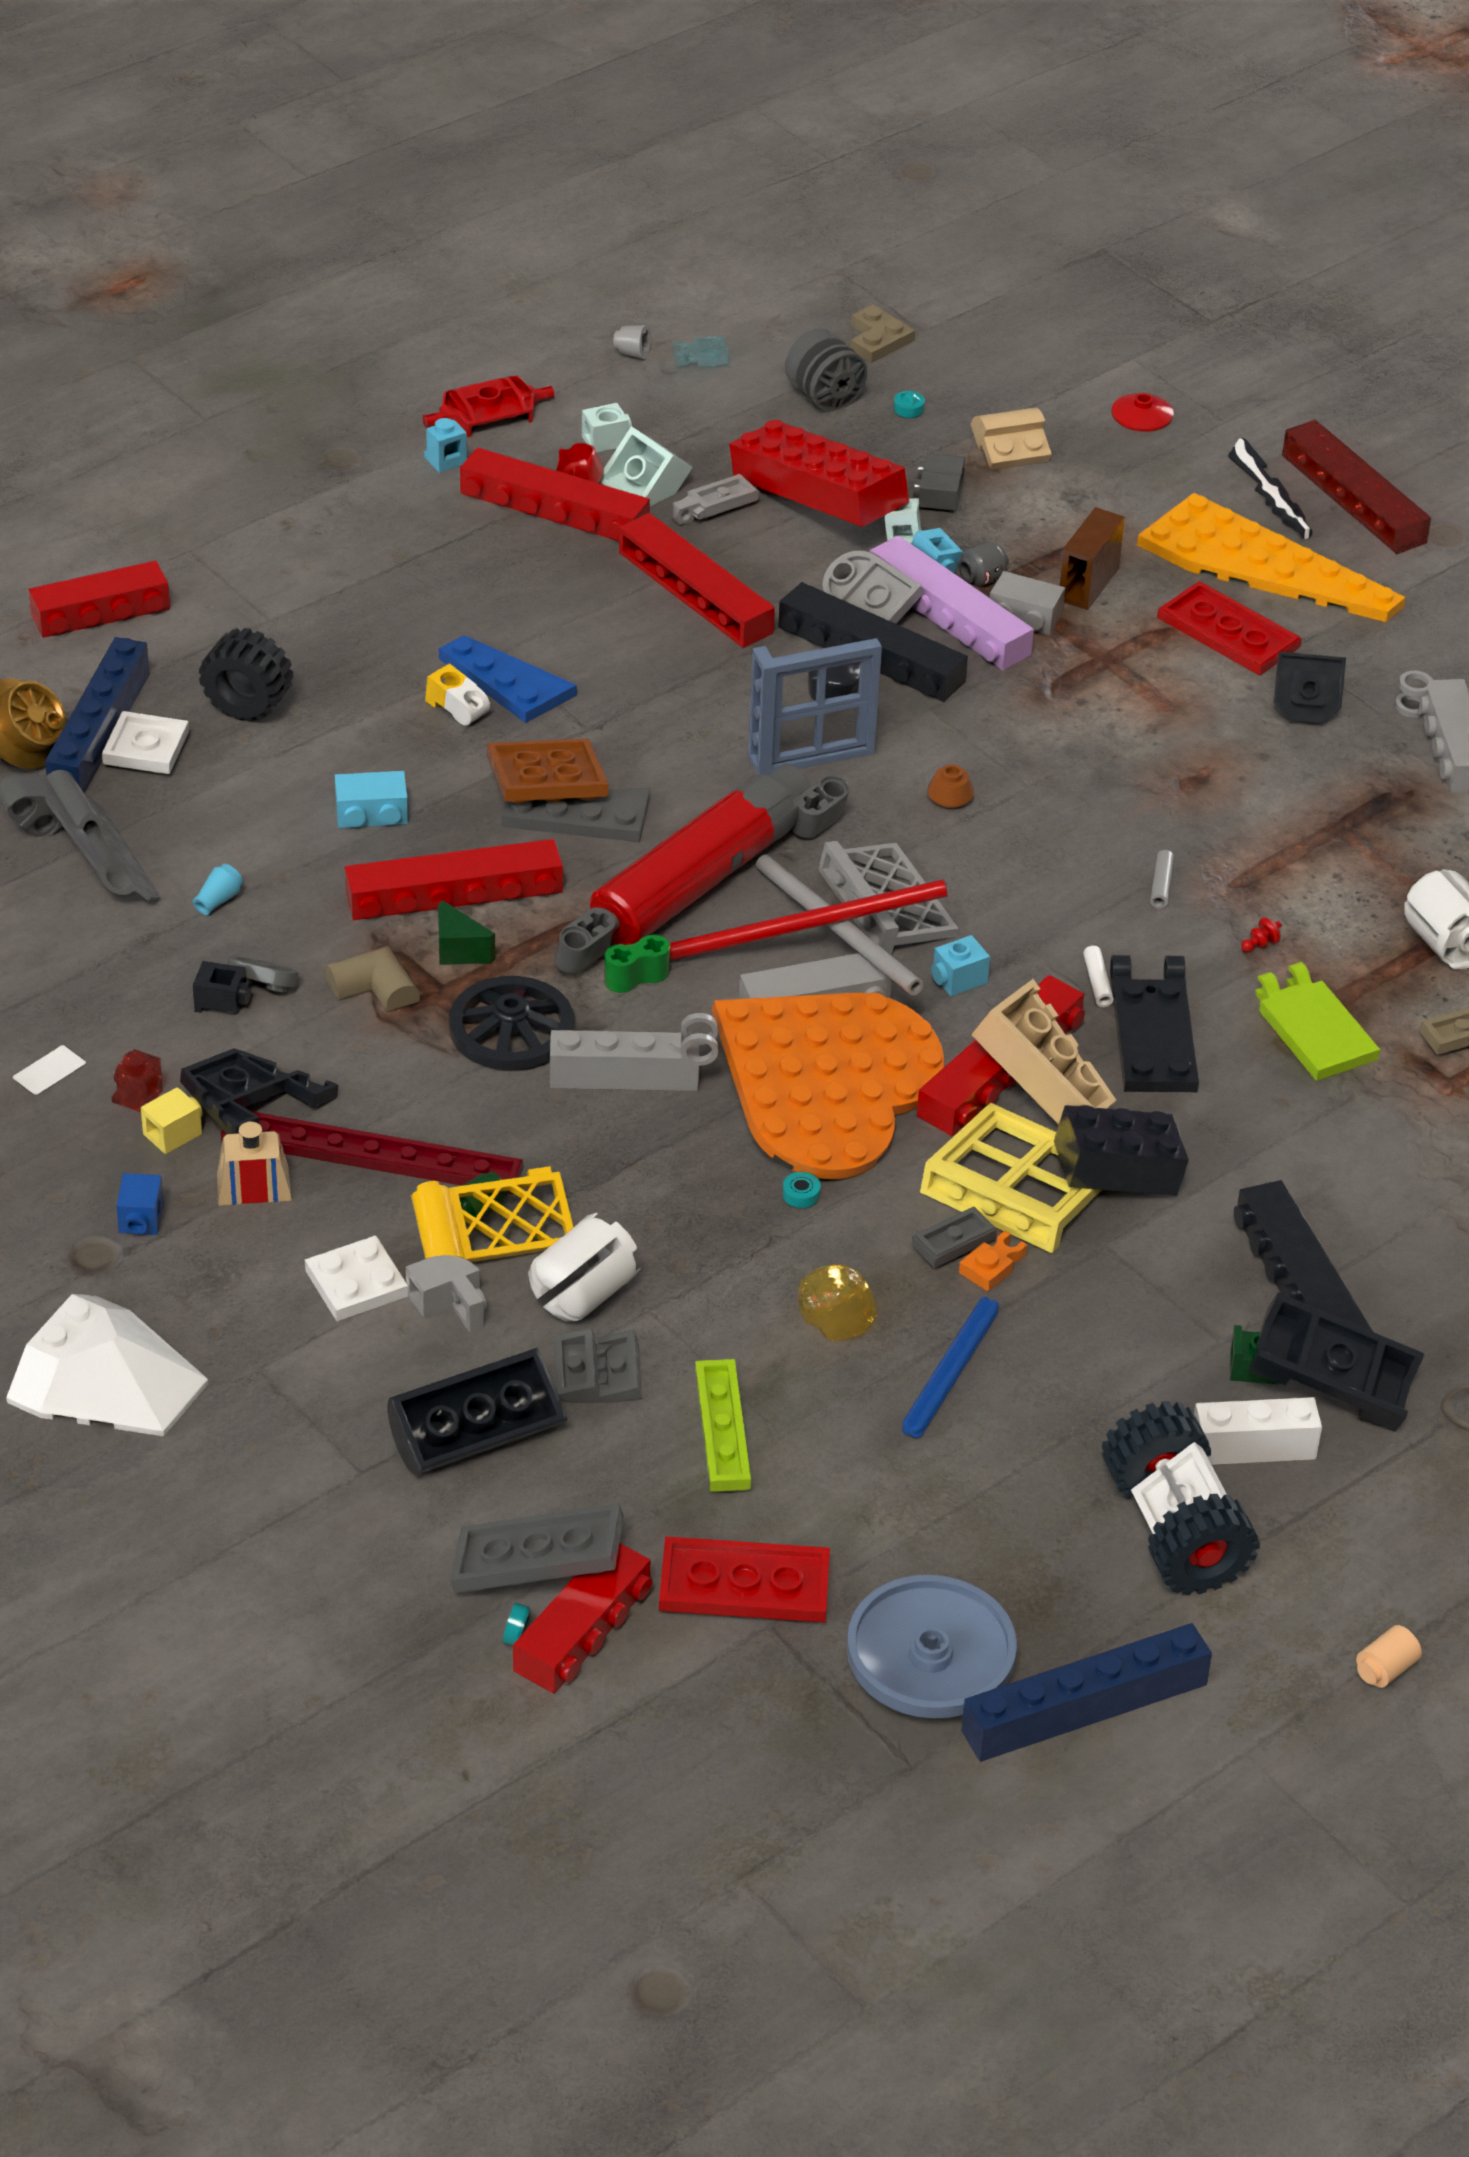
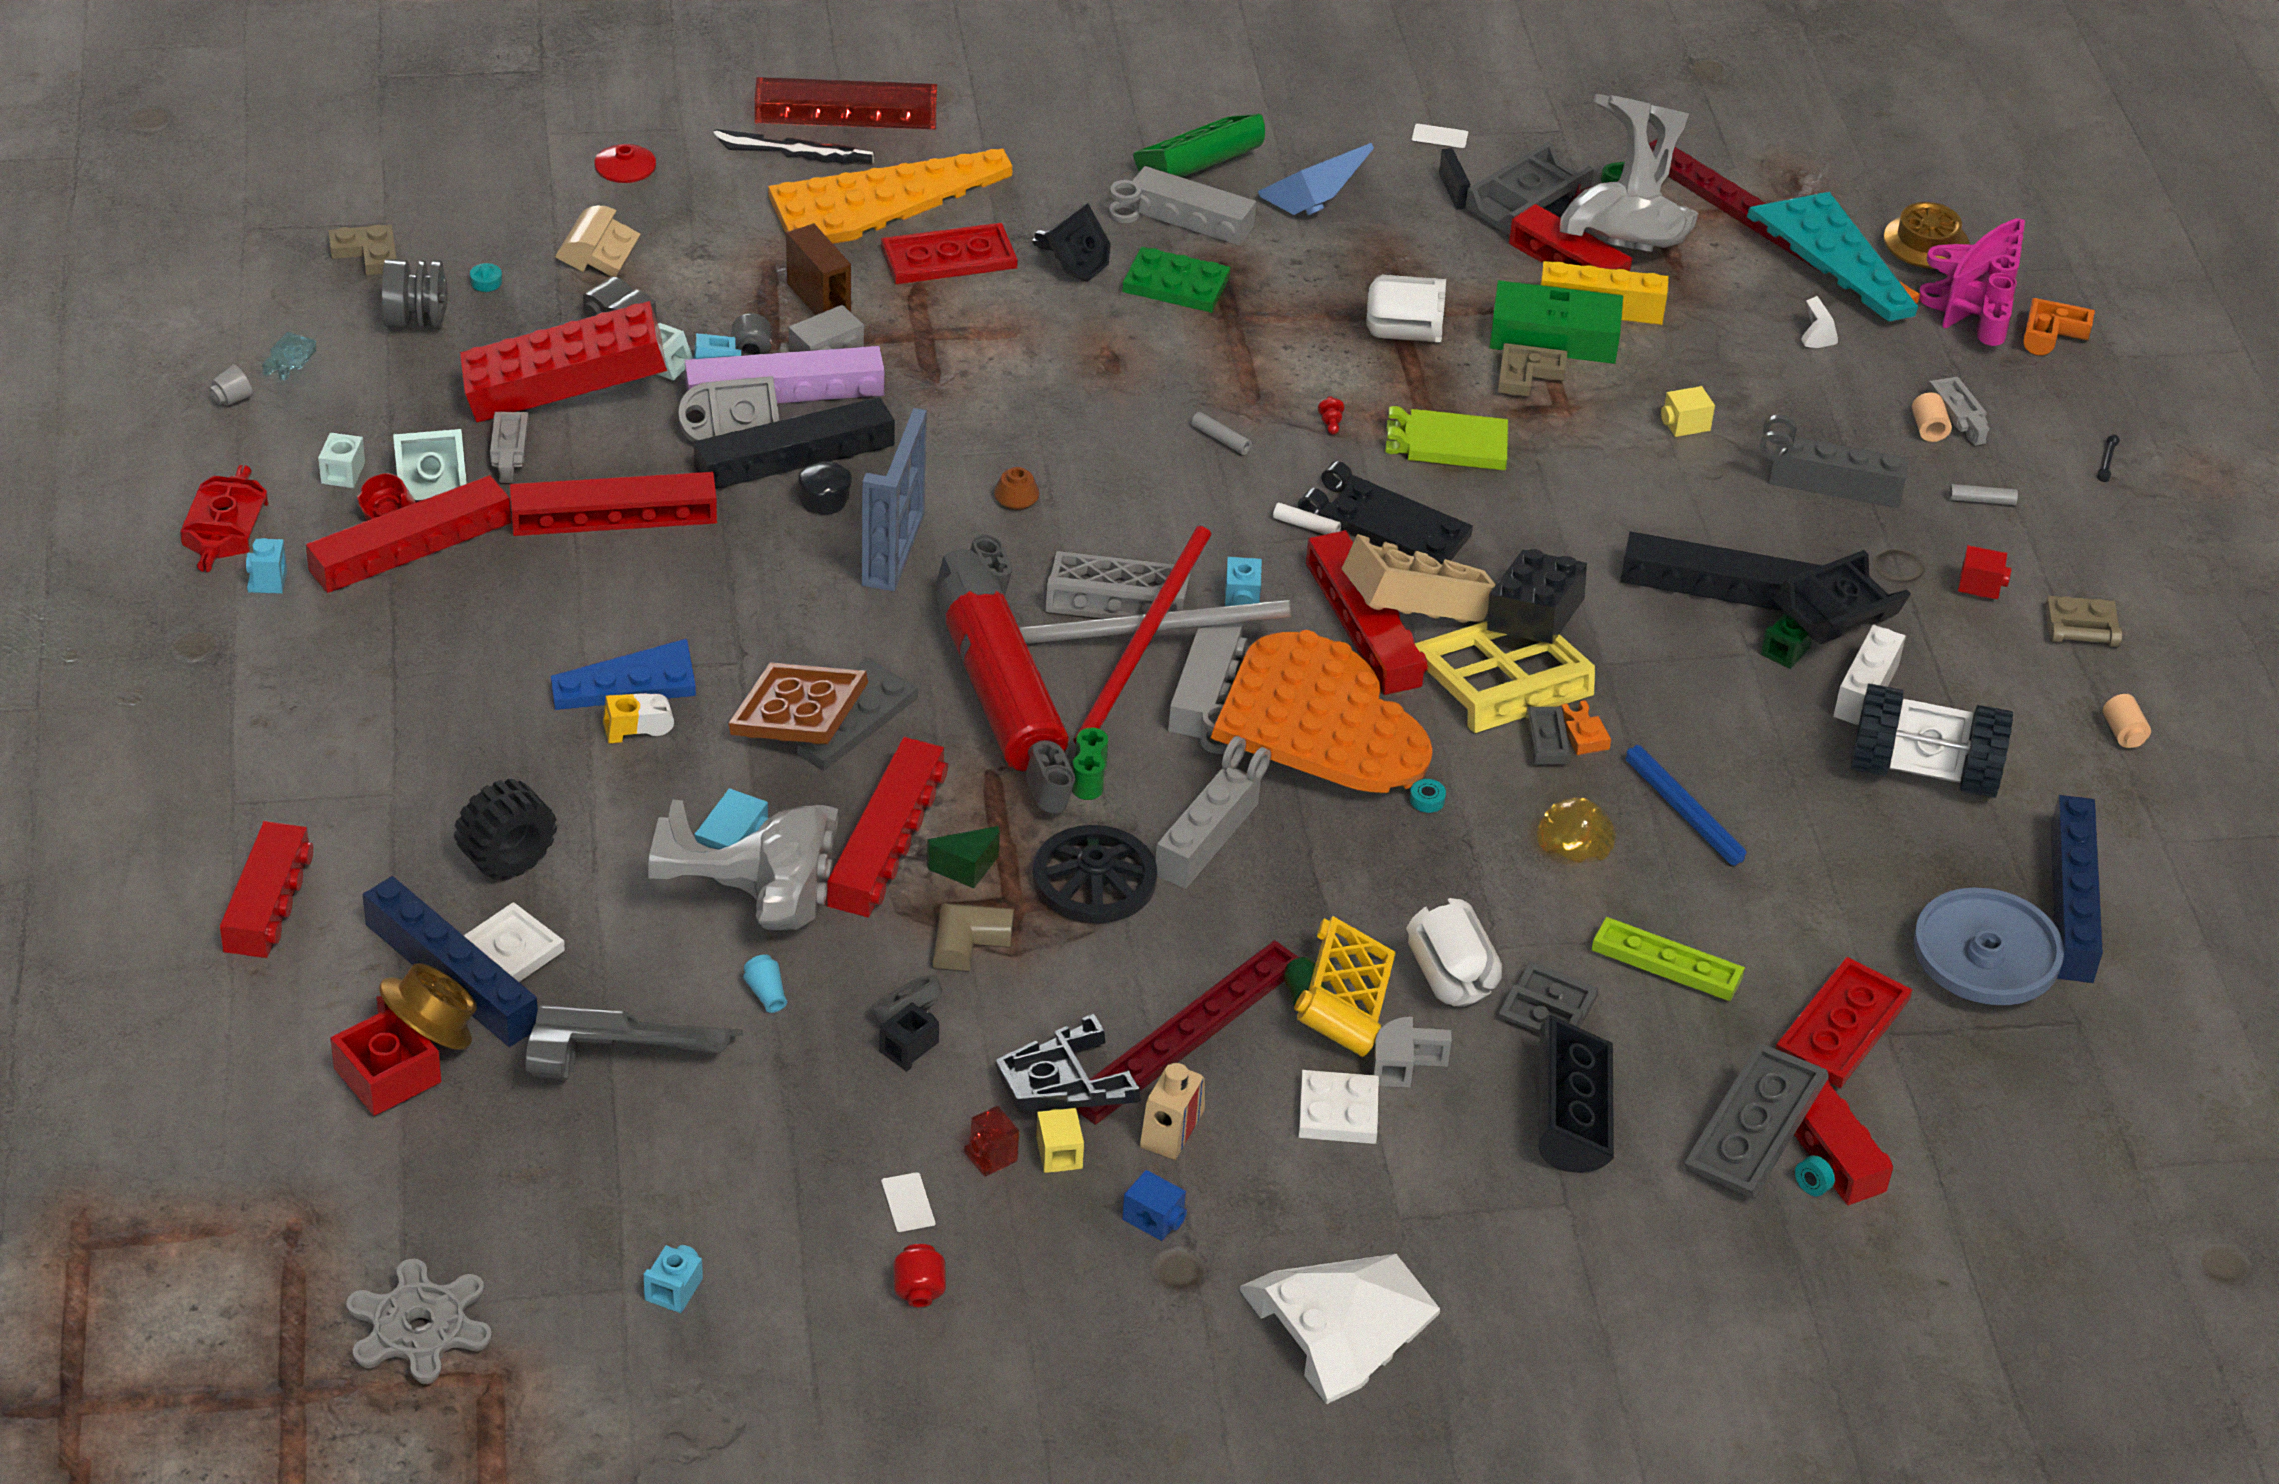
camera: 60 degrees left, 0 degrees up
(322, 821) = (777, 864): none -> light grey animal
(1349, 771) = (1176, 279): none -> green plate

